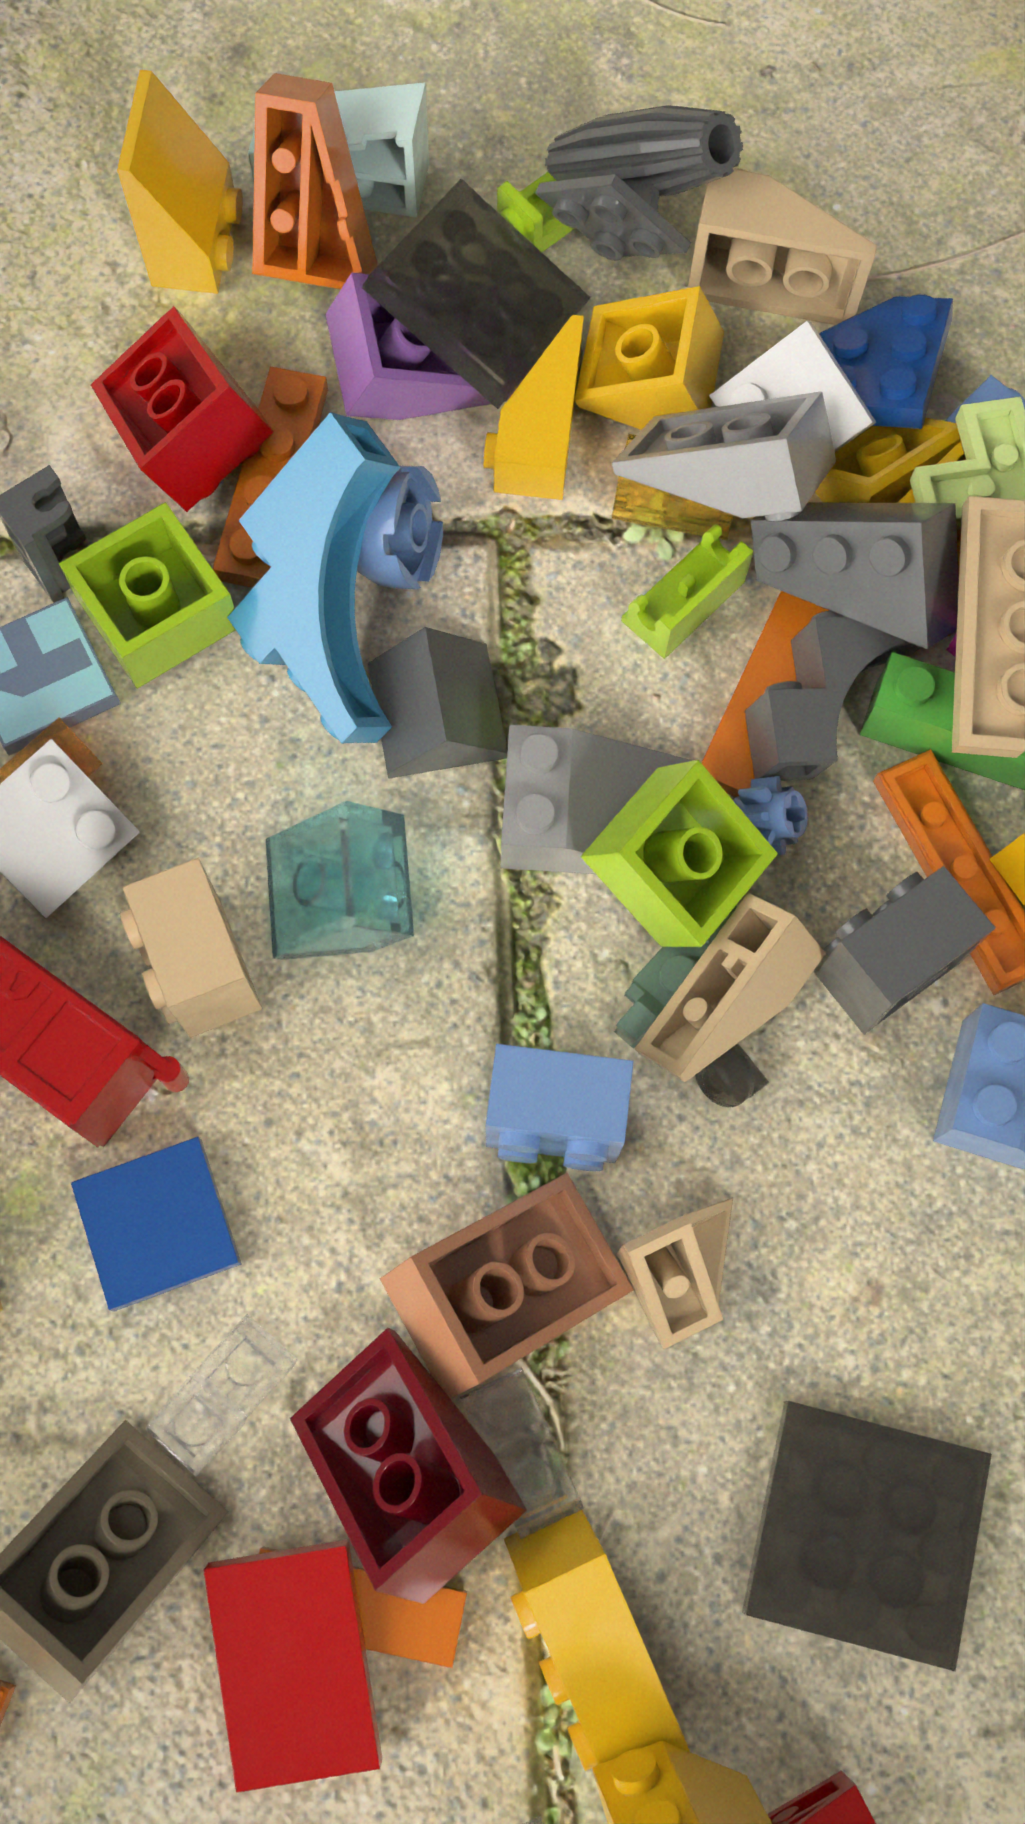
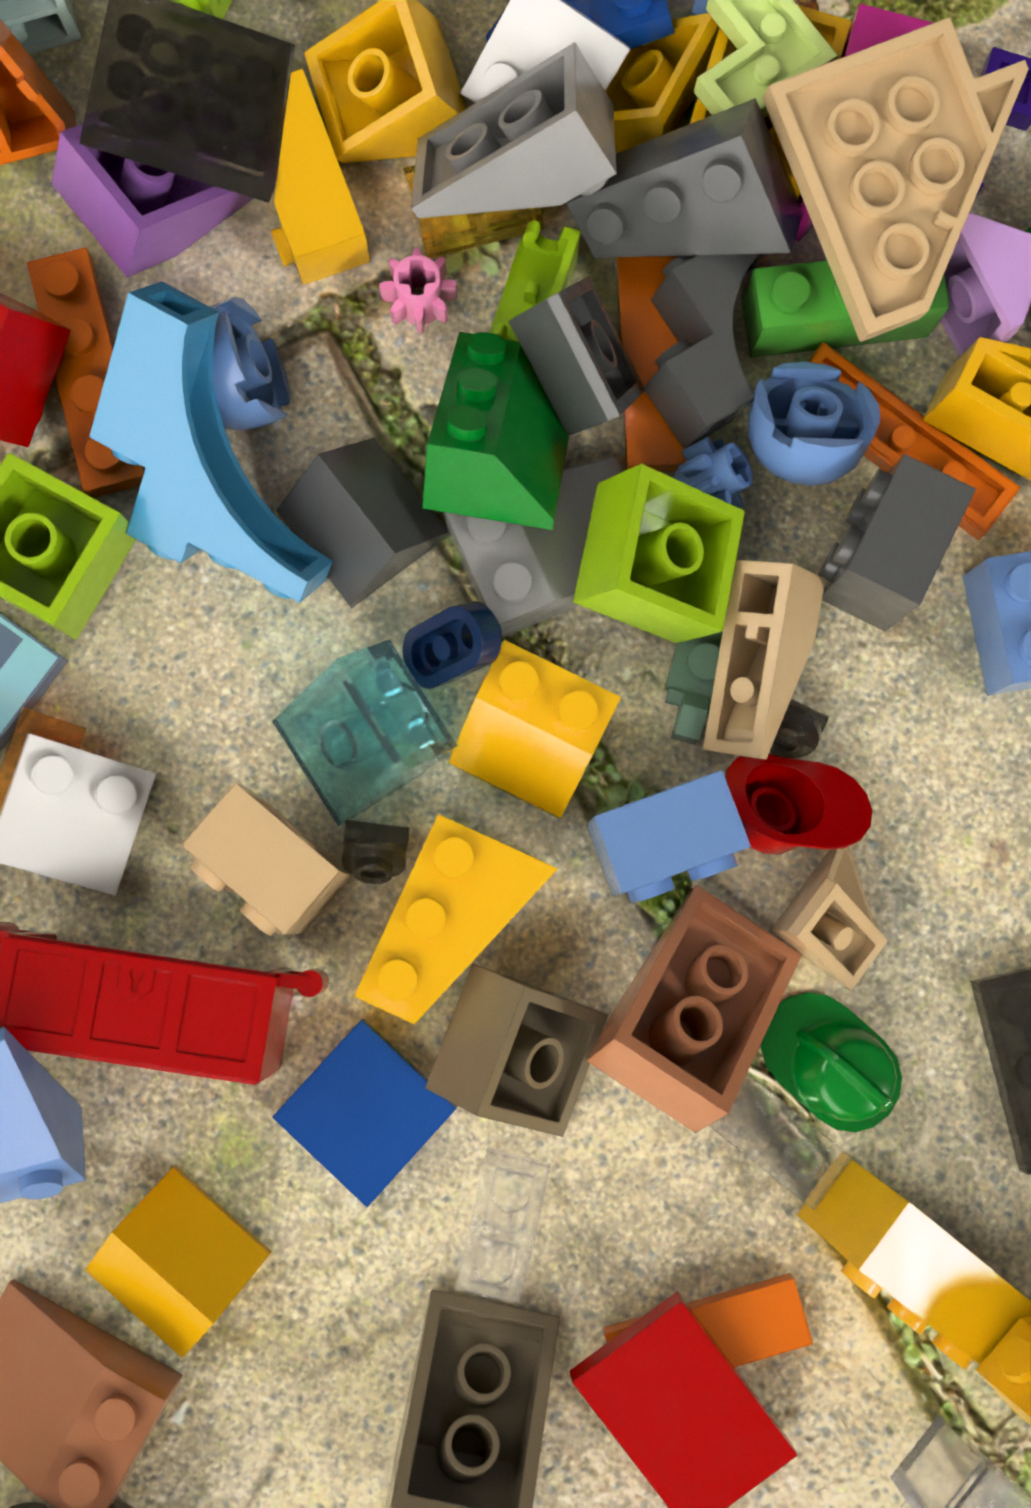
camera: 30 degrees left, 10 degrees up
(291, 994) = (374, 851): none -> clear smoke plate
(320, 1238) = (515, 1052): none -> dark tan slope
(323, 1080) = (446, 916): none -> yellow wedge
(404, 1471) = (693, 1210): dark red slope -> none
(455, 844) = (452, 644): none -> dark blue plate
(491, 957) = (533, 729): none -> yellow slope
(585, 523) = (418, 272): none -> bright pink gear
(588, 683) = (494, 438): none -> green slope
(611, 1408) = (832, 1062): none -> green piece
(688, 1137) = (797, 804): none -> red piece
(697, 650) = (578, 357): none -> dark grey slope
(878, 809) = (810, 423): none -> medium blue cylinder

